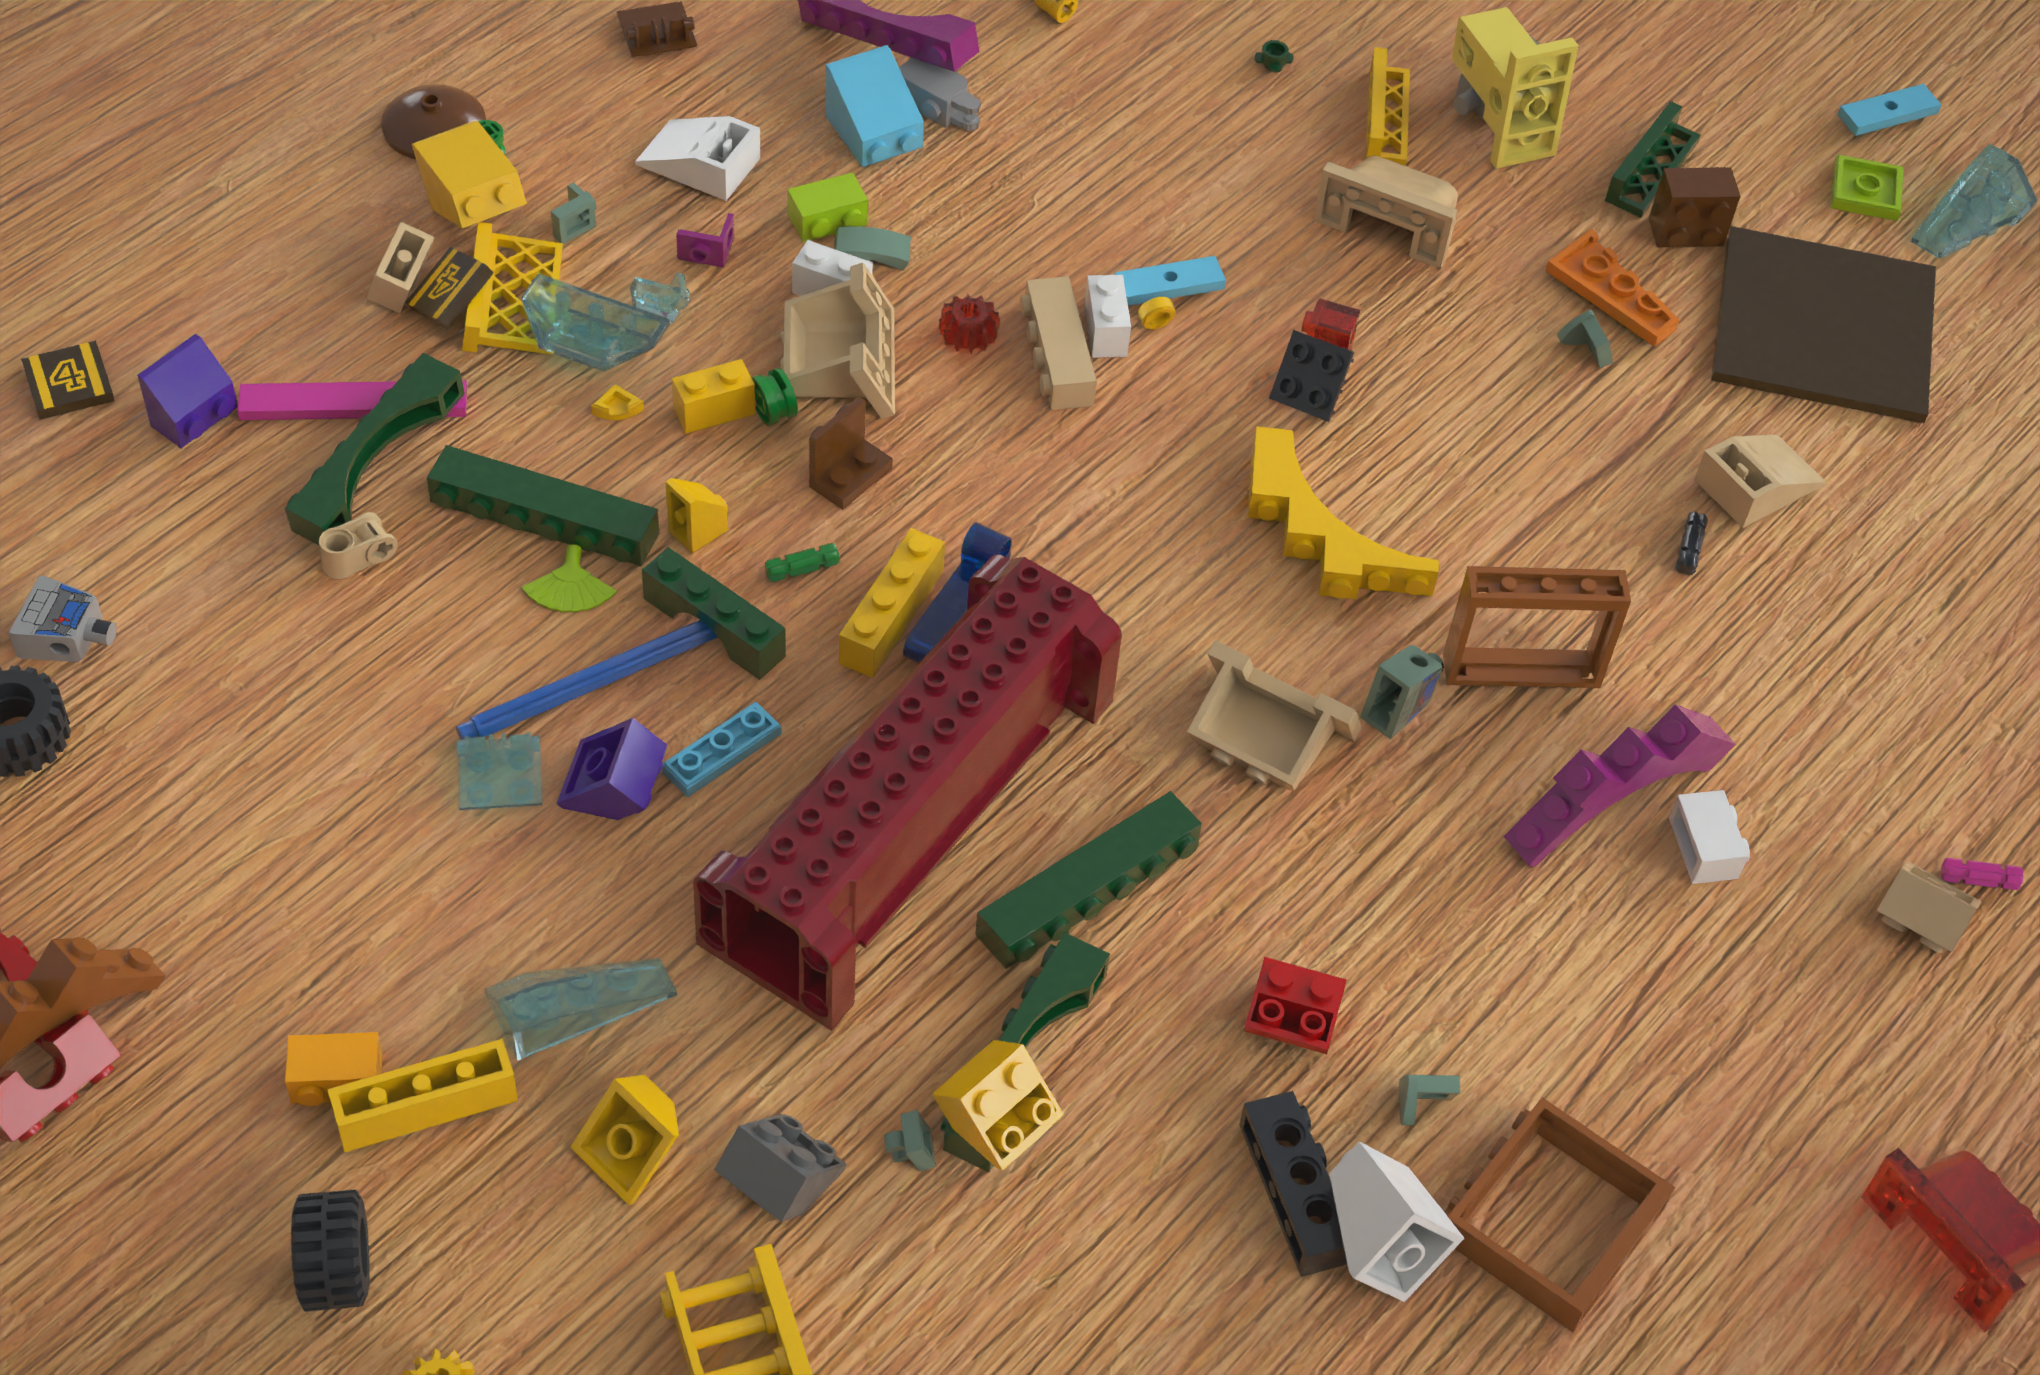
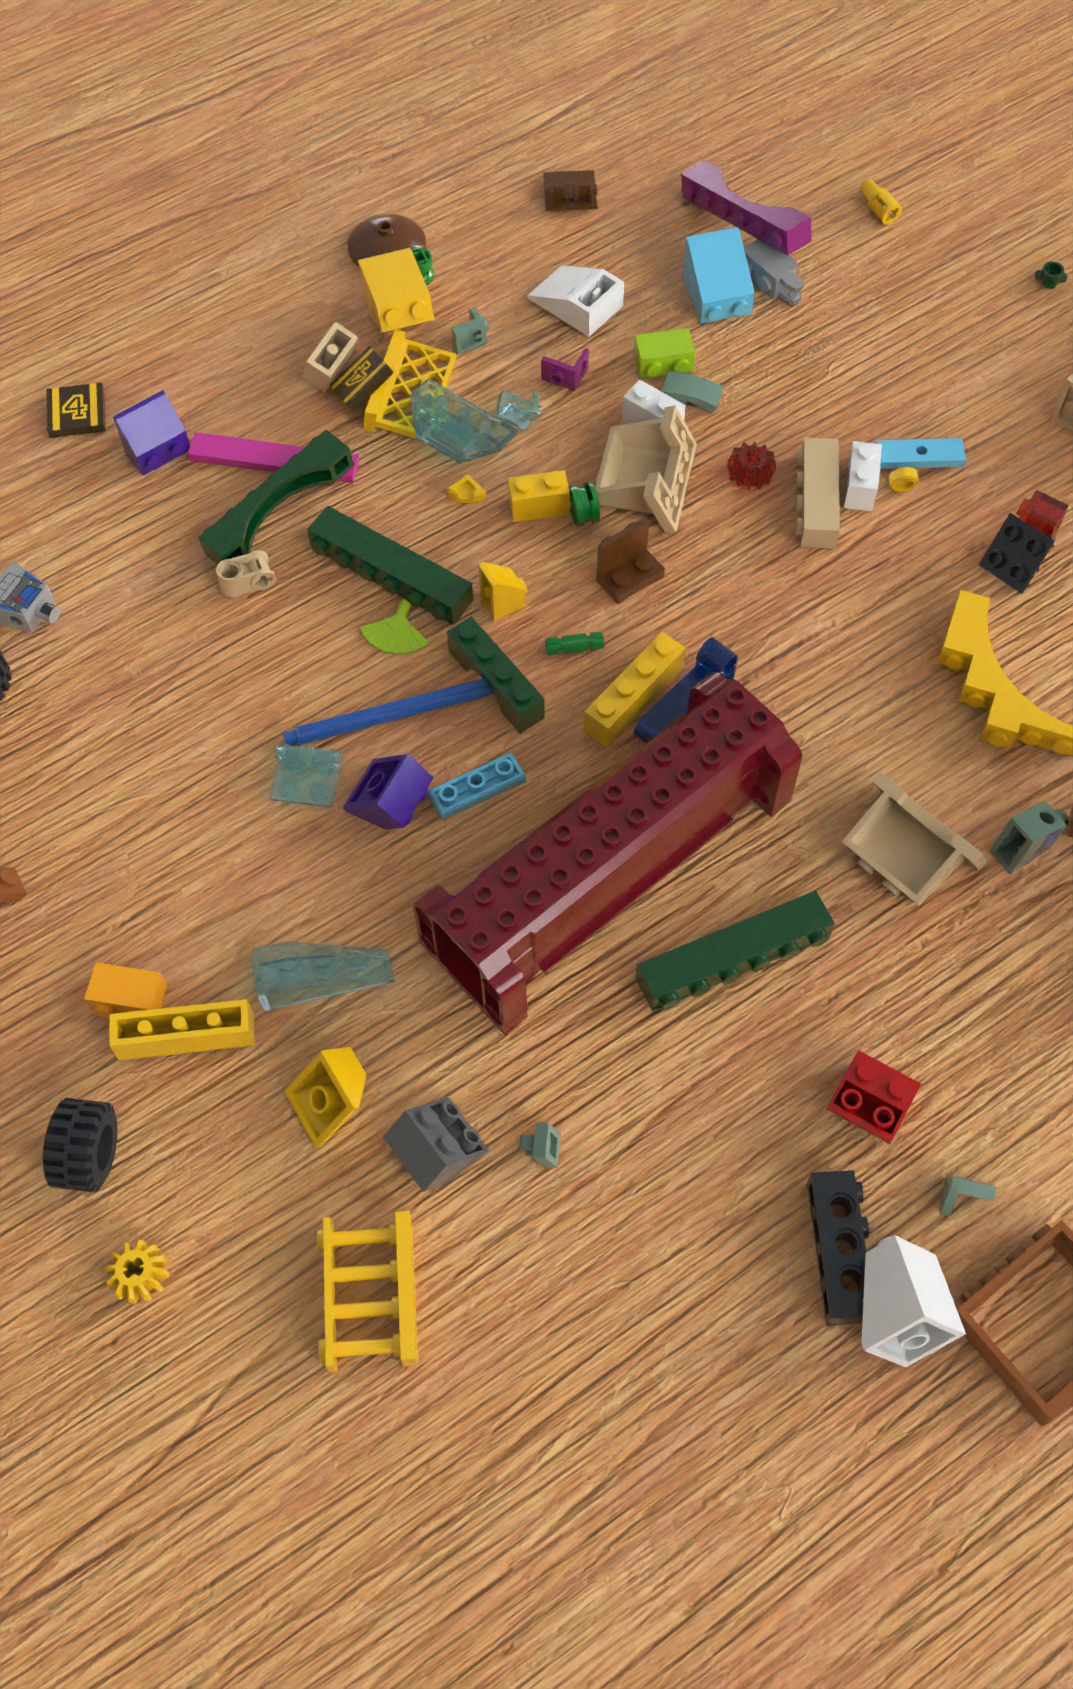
camera: 20 degrees right, 10 degrees up
(999, 1102) = (612, 1134): yellow slope -> none
(1065, 985) = (694, 1036): dark green arch -> none

